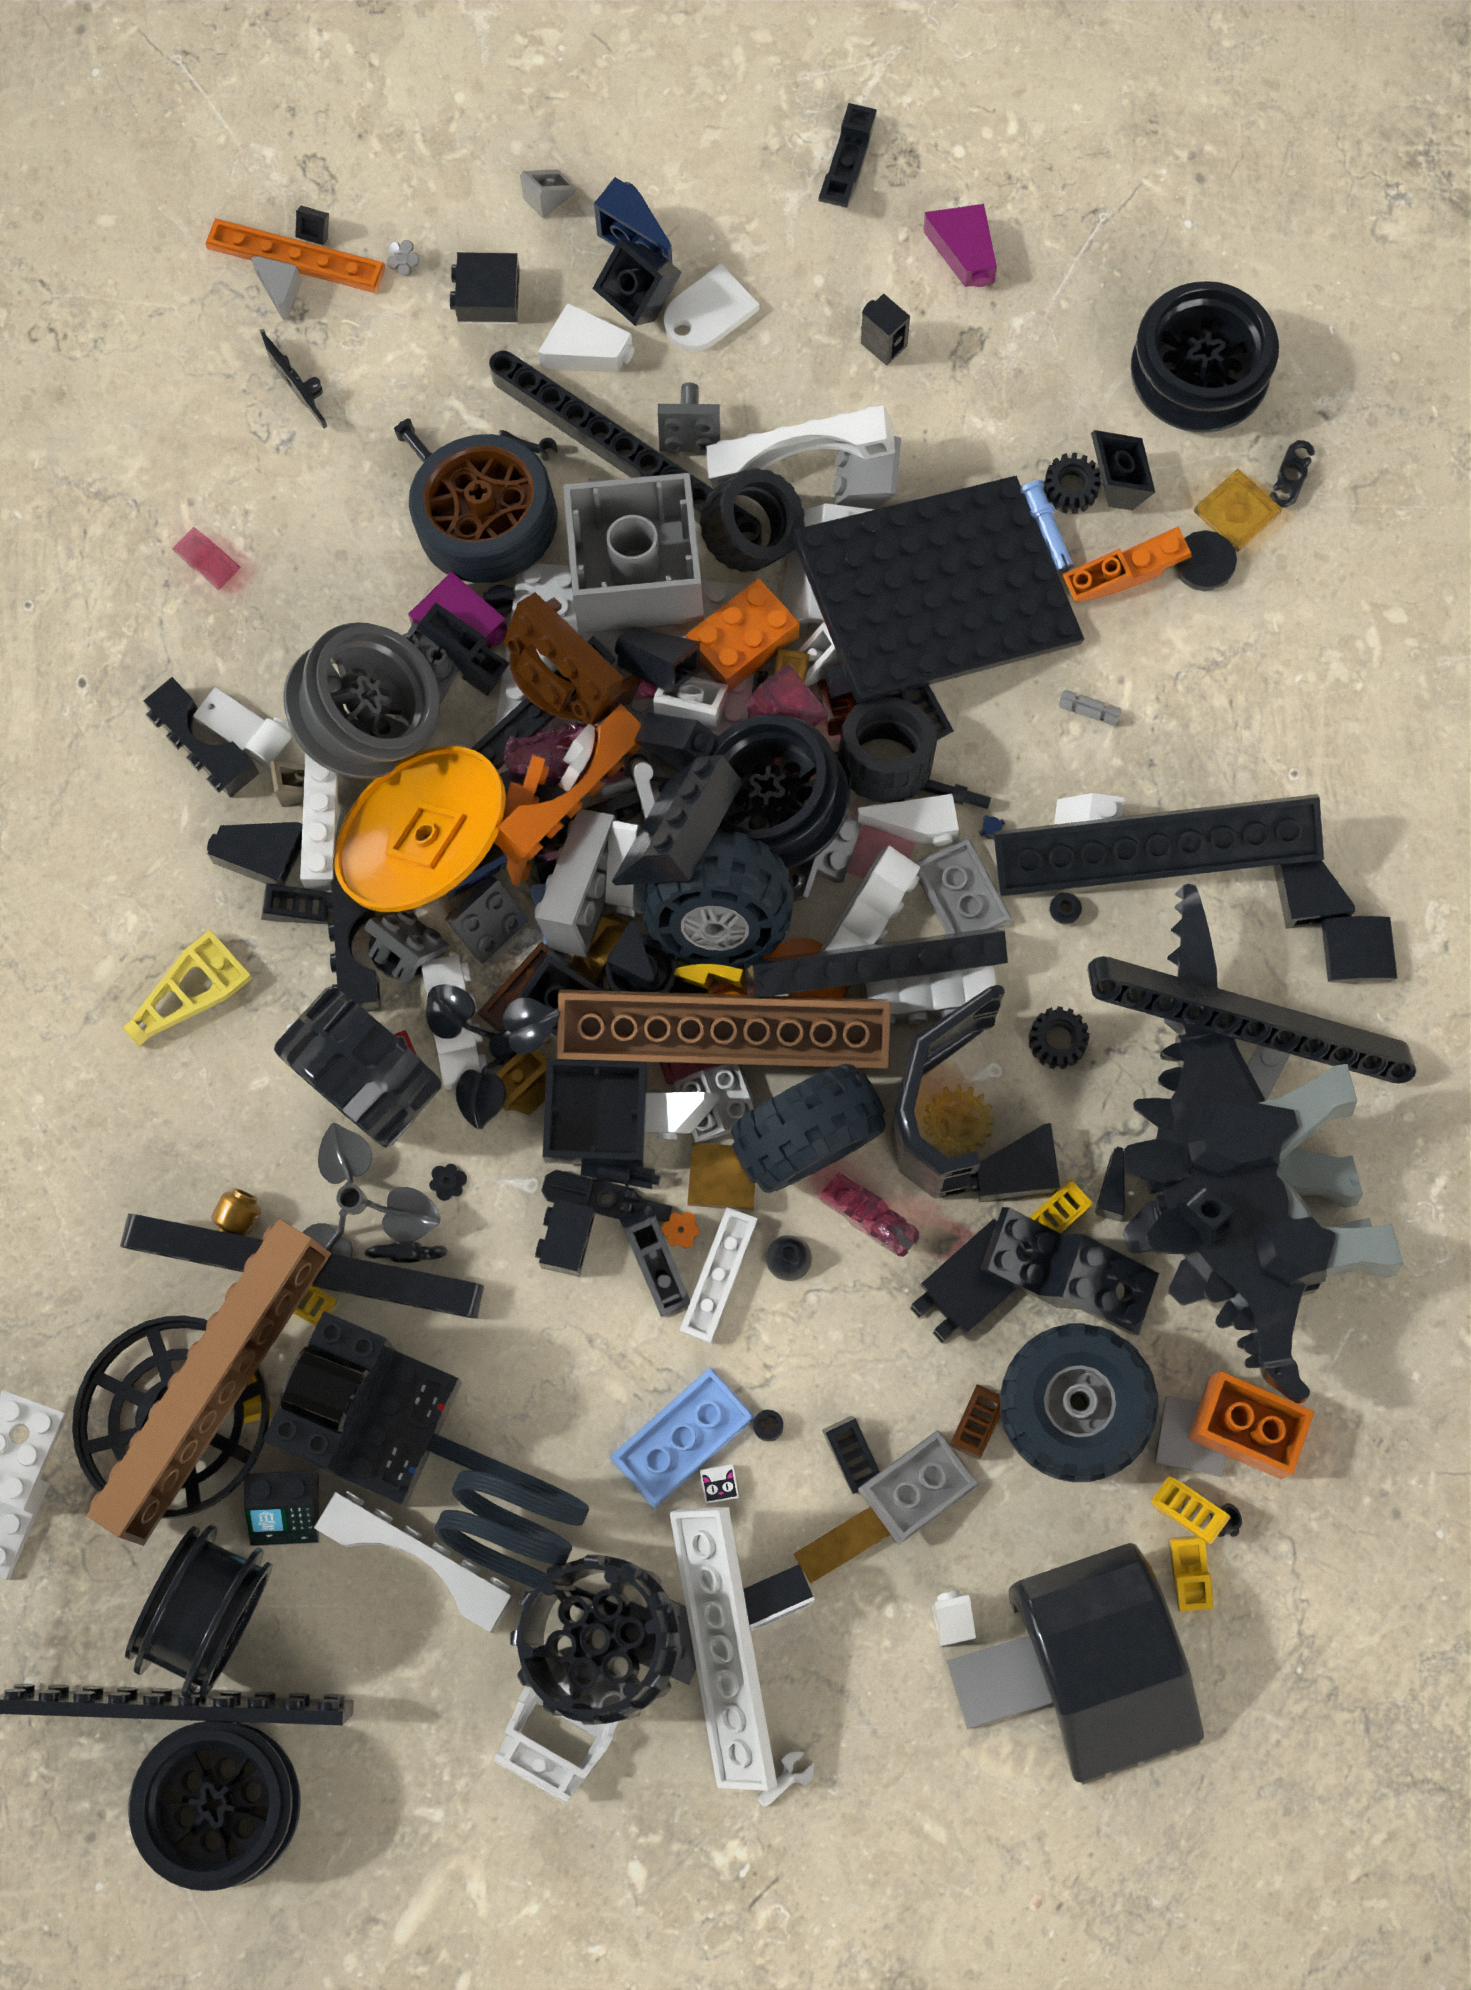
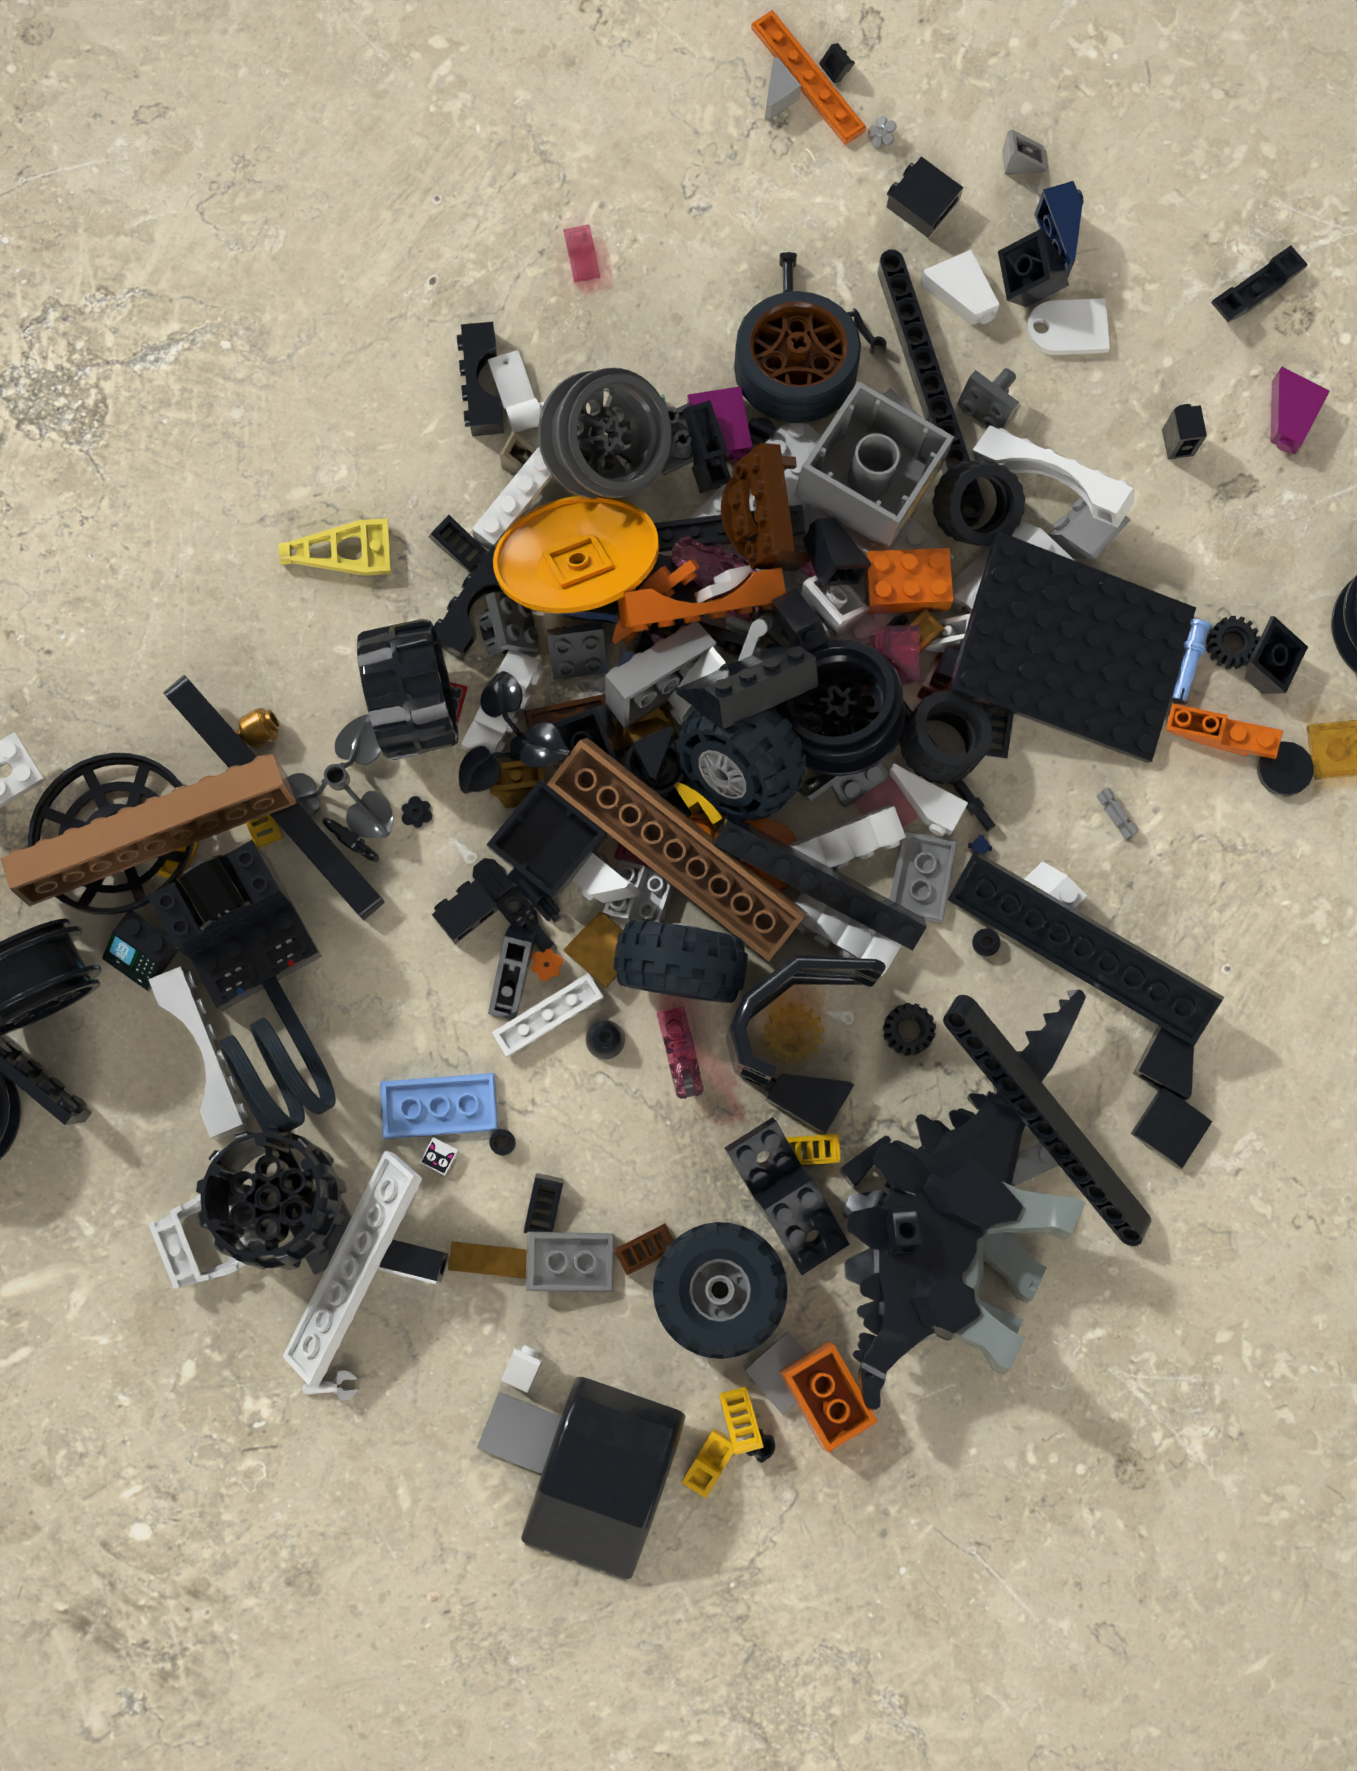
camera: 30 degrees right, 5 degrees up
(258, 850) = (461, 486): black slope -> none
(304, 391) = (741, 182): black piece -> none
(962, 1289) = (703, 1151): black tile -> none

